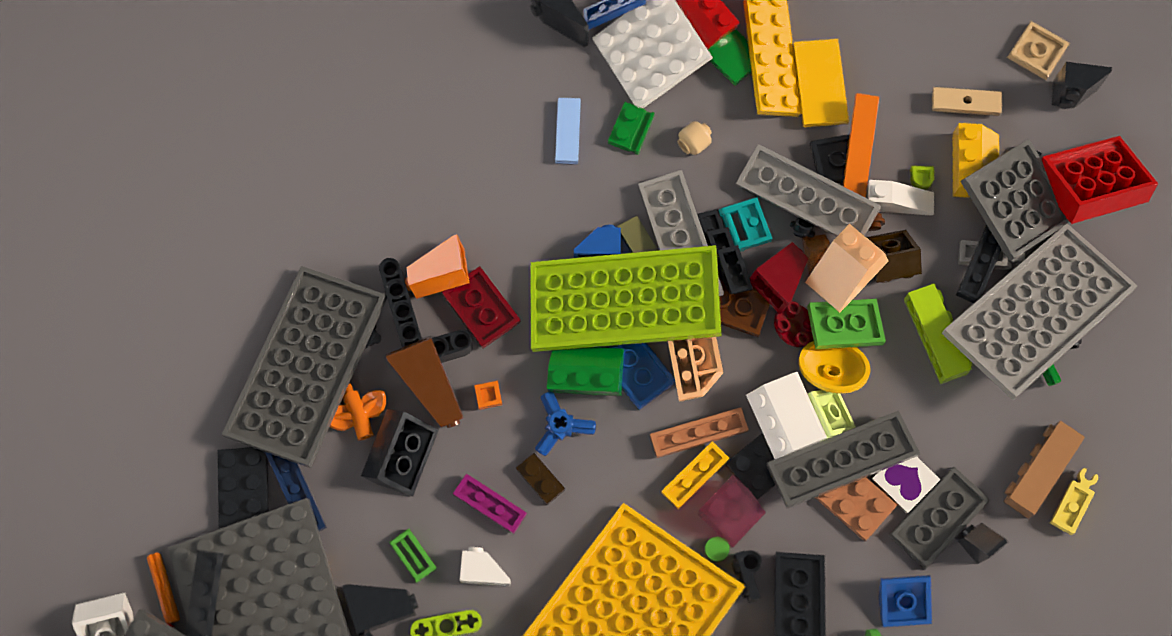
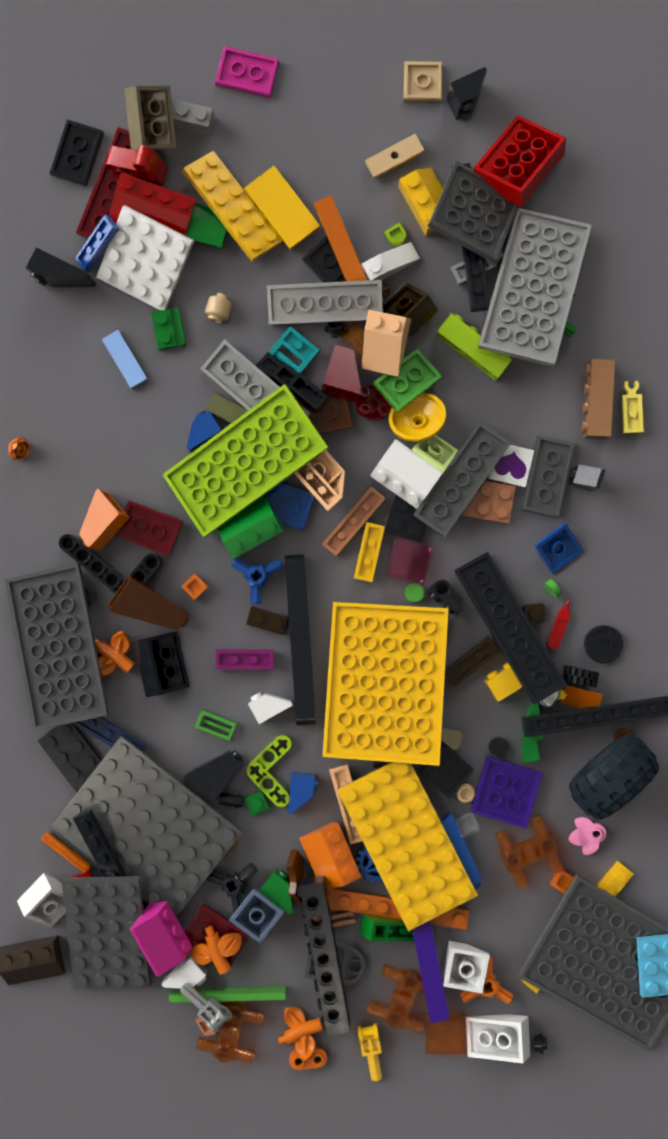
camera: 30 degrees left, 15 degrees up
(405, 150) = (18, 449): none -> orange plate
(561, 522) = (300, 640): none -> black beam

